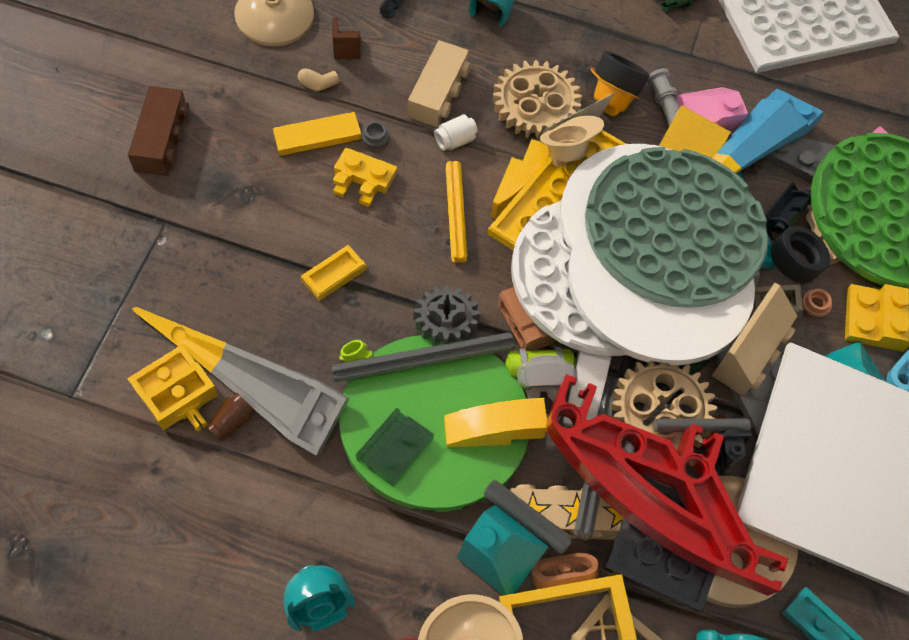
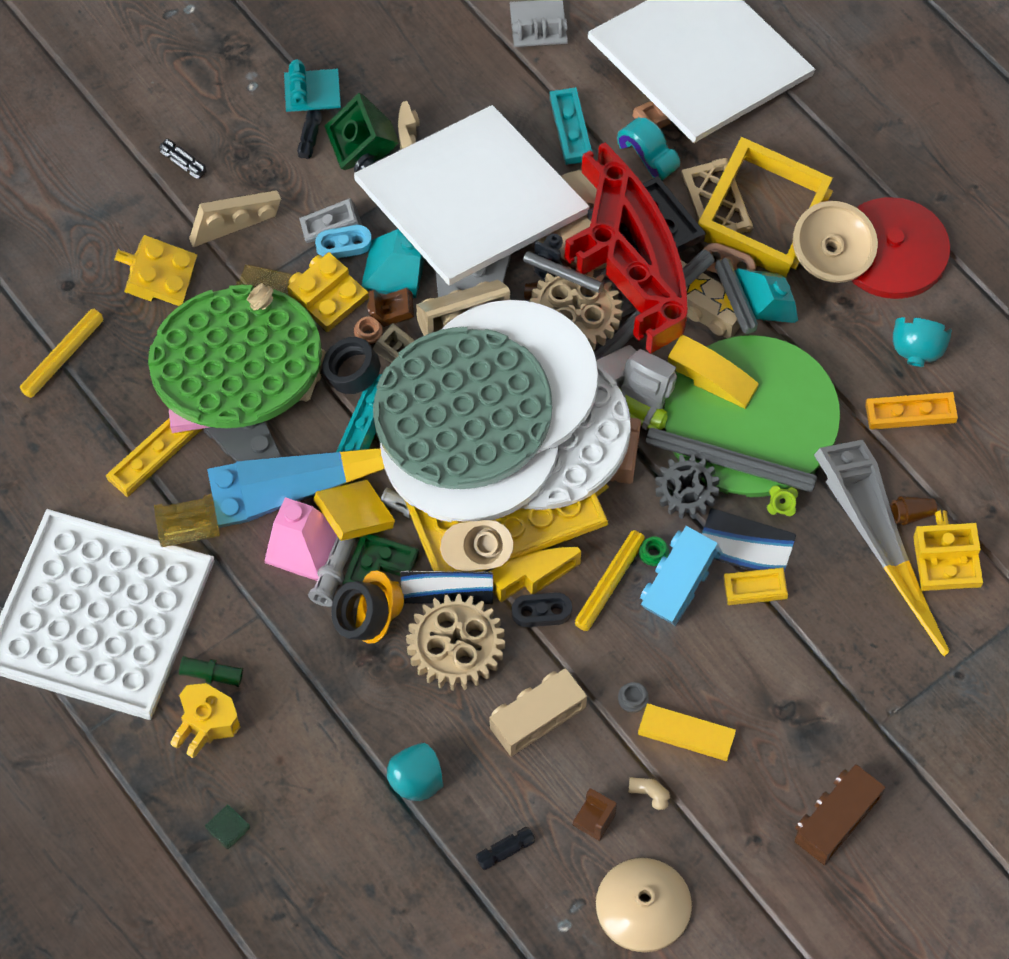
camera: 140 degrees left, 0 degrees up
(285, 519) = (911, 410): none -> light orange plate
(364, 170) = (666, 667): yellow plate -> none
(366, 309) = (748, 542): none -> sticker
(394, 447) = (800, 402): clear green plate -> none
(399, 239) = (680, 575): none -> medium azure wedge
(437, 245) = (653, 543): none -> green plate
(456, 133) = (558, 650): white brick -> none
(489, 157) = (541, 608): none -> black plate
(647, 124) = (379, 554): none -> dark green tile
(785, 210) = (333, 408): black hinge -> none
(797, 68) = (186, 521): none -> clear yellow plate
(820, 329) = (391, 307): none -> reddish brown bracket
(872, 105) = (148, 457): none -> yellow tile

